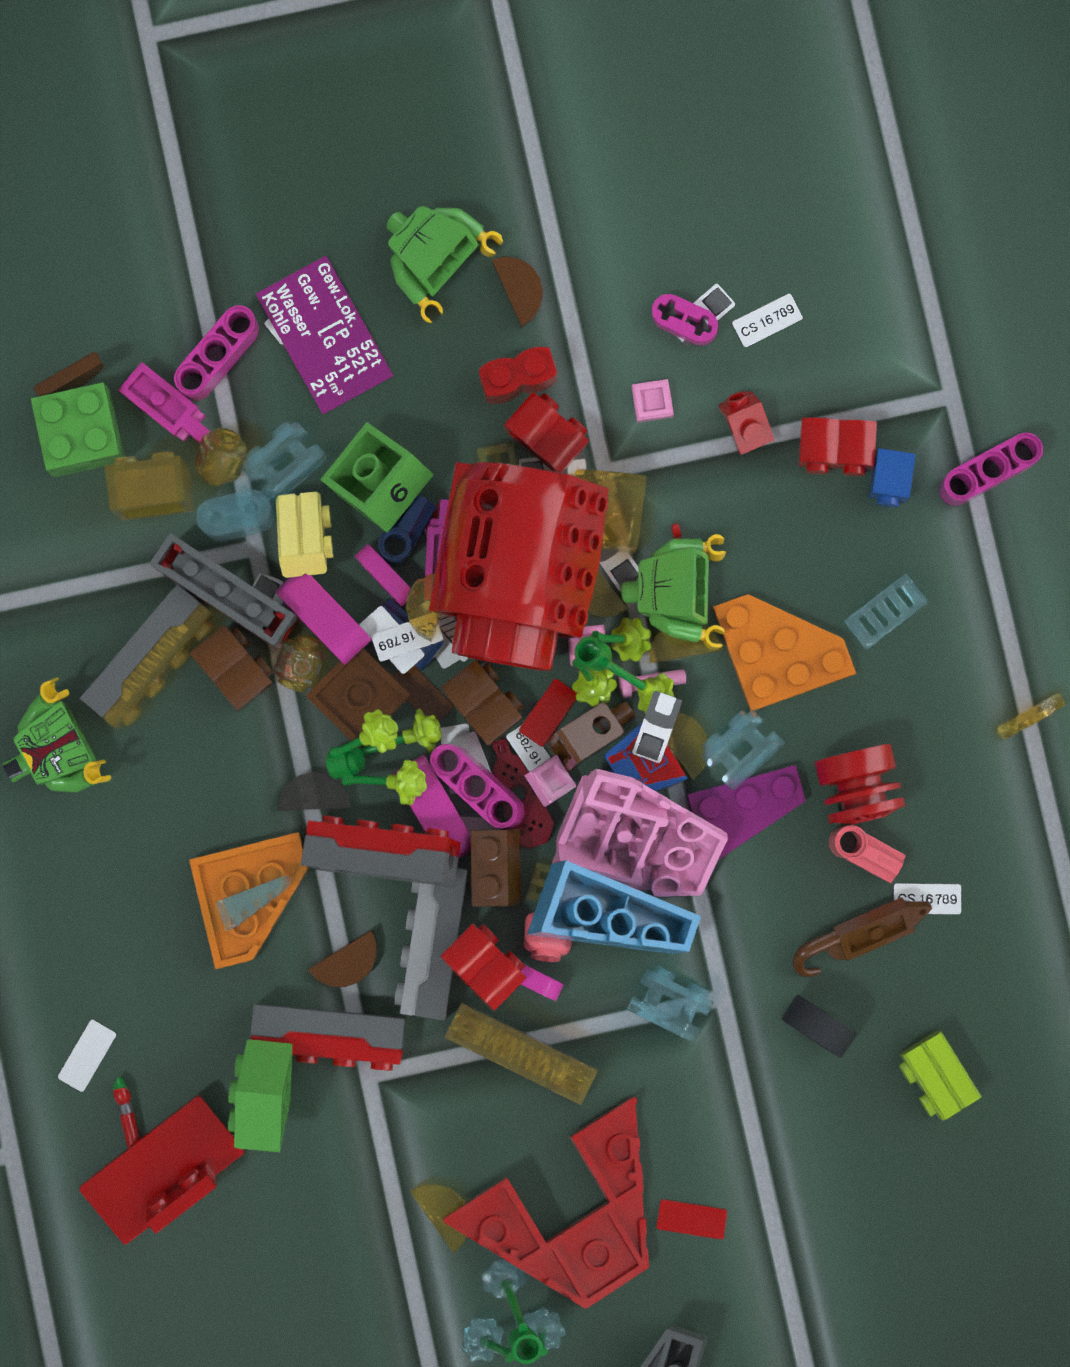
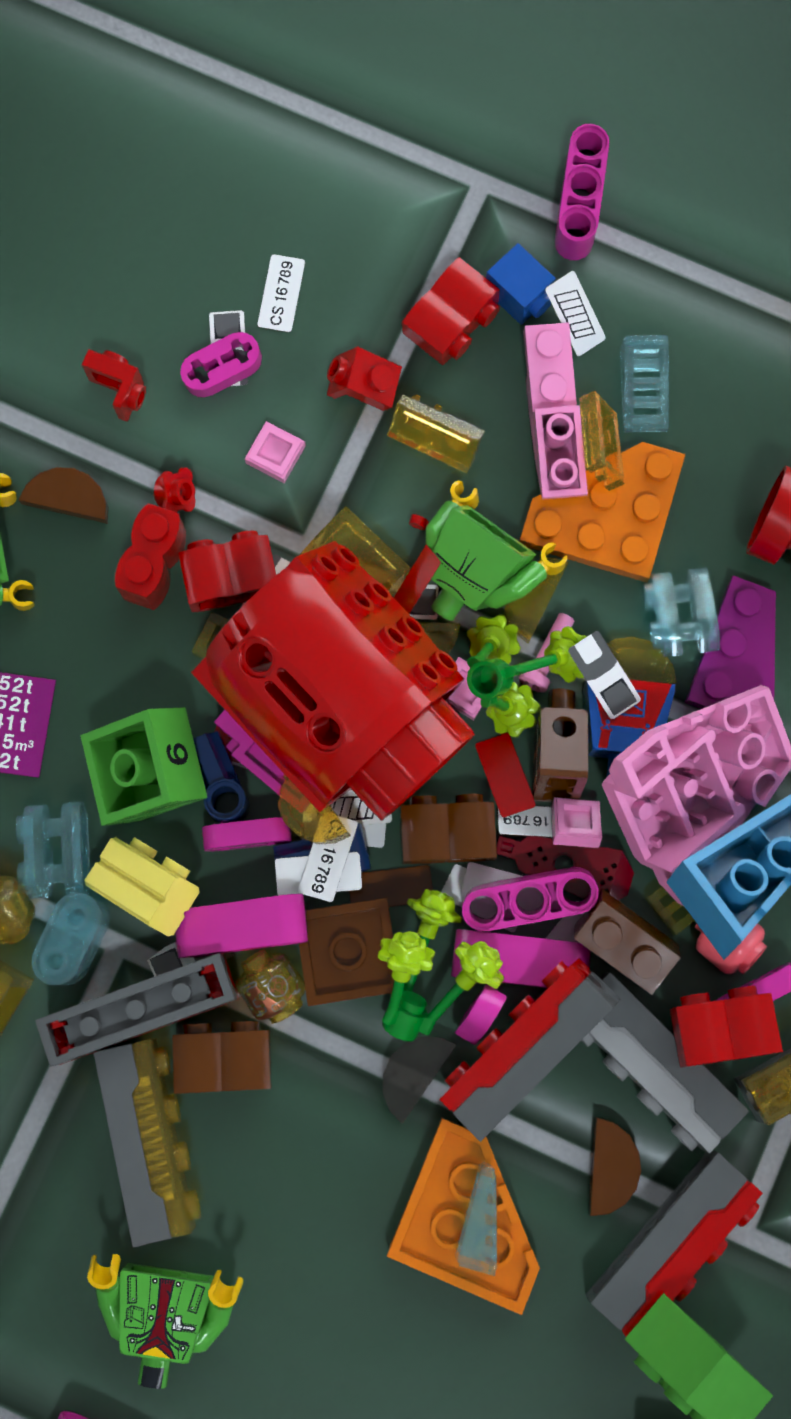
camera: 55 degrees left, 5 degrees down
(379, 807) = (480, 1014): none -> dark pink beam
(574, 357) = (175, 490): none -> red plate
(624, 253) = (116, 374): none -> red bracket
(627, 559) = (417, 579): none -> red sticker
(742, 496) = (435, 433): none -> clear yellow plate
(817, 565) = (554, 411): none -> bright pink slope
(819, 610) = (601, 440): none -> clear yellow tile
(899, 528) = (573, 307): none -> white sticker

